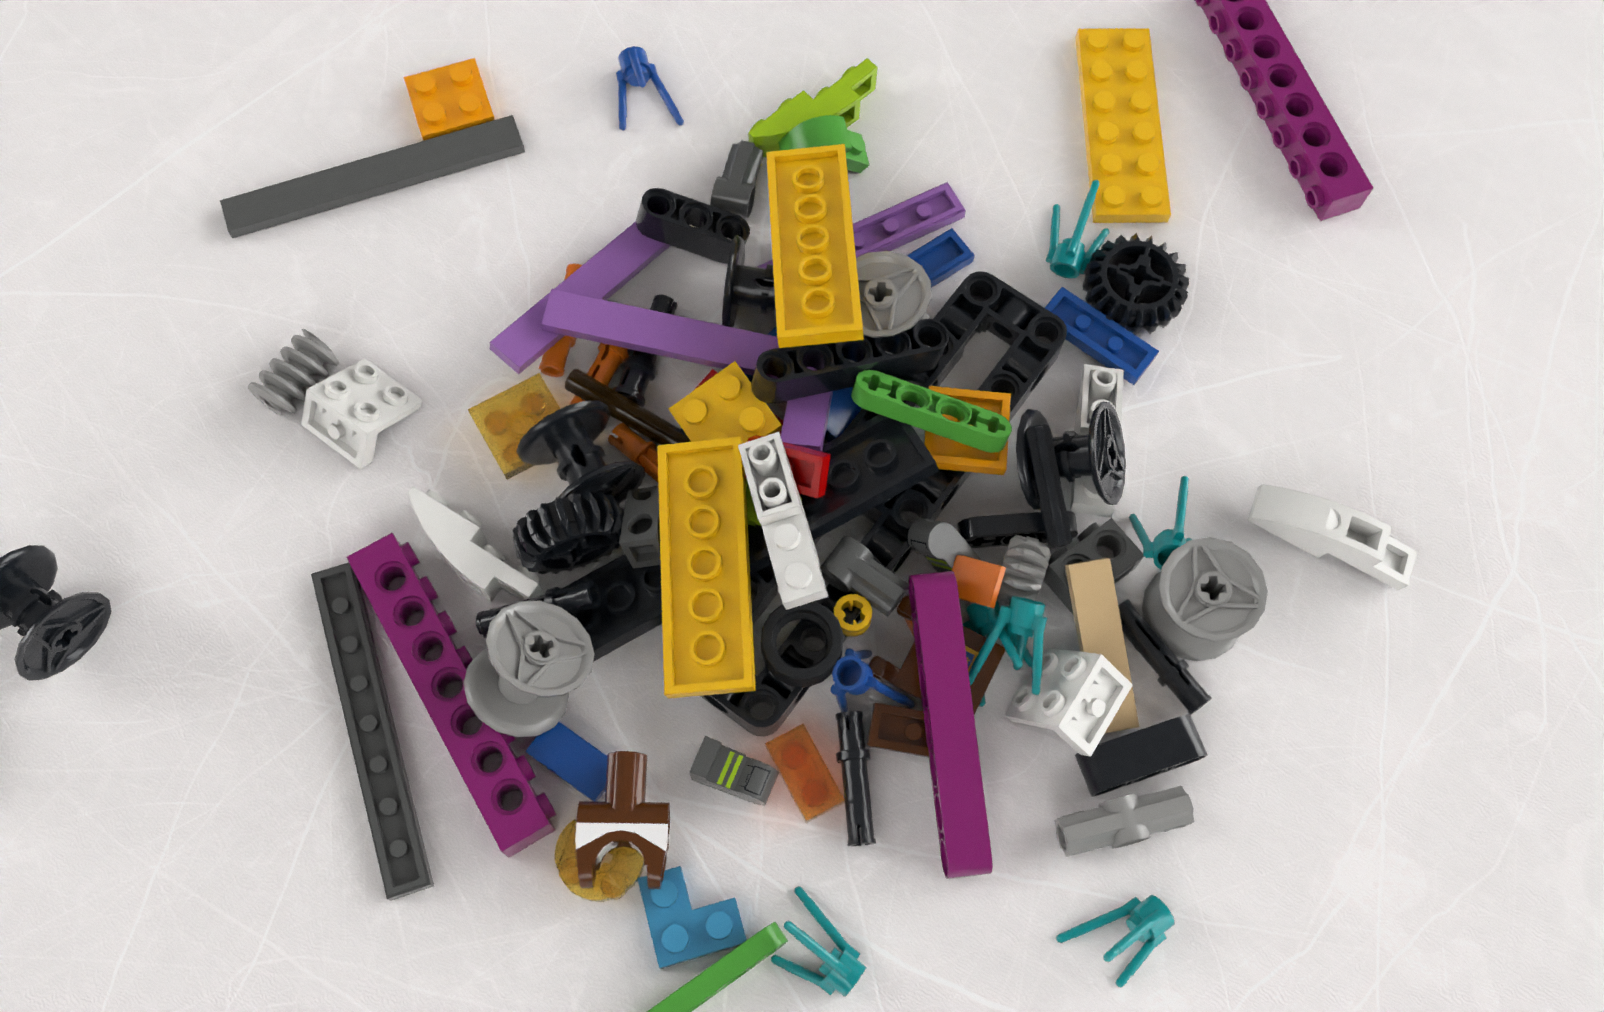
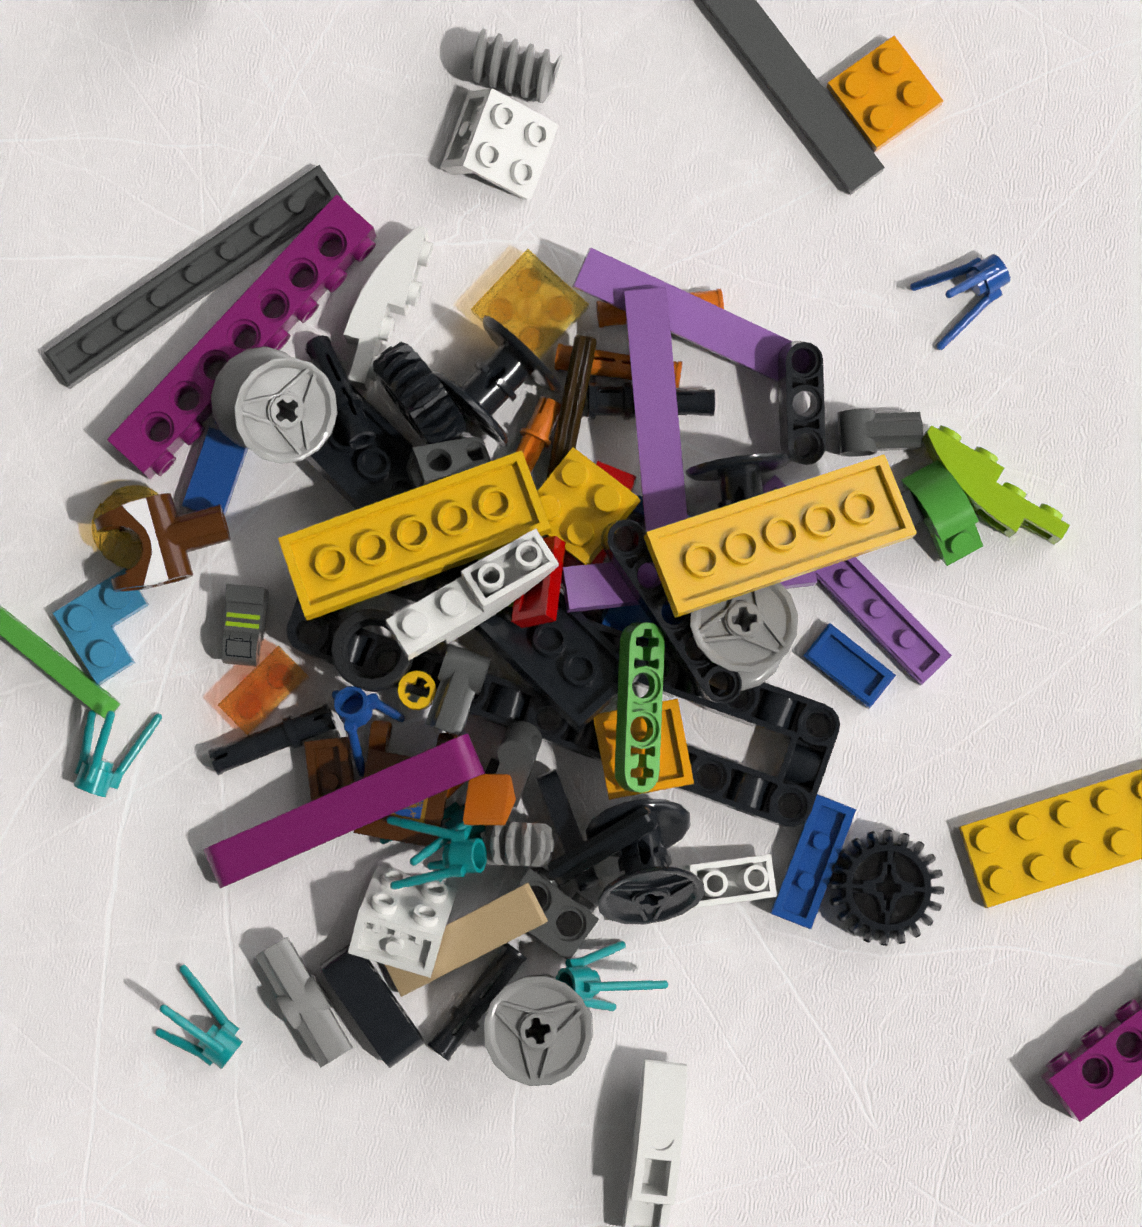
camera: 75 degrees right, 15 degrees up
(1069, 257) = (899, 809): teal plant -> none

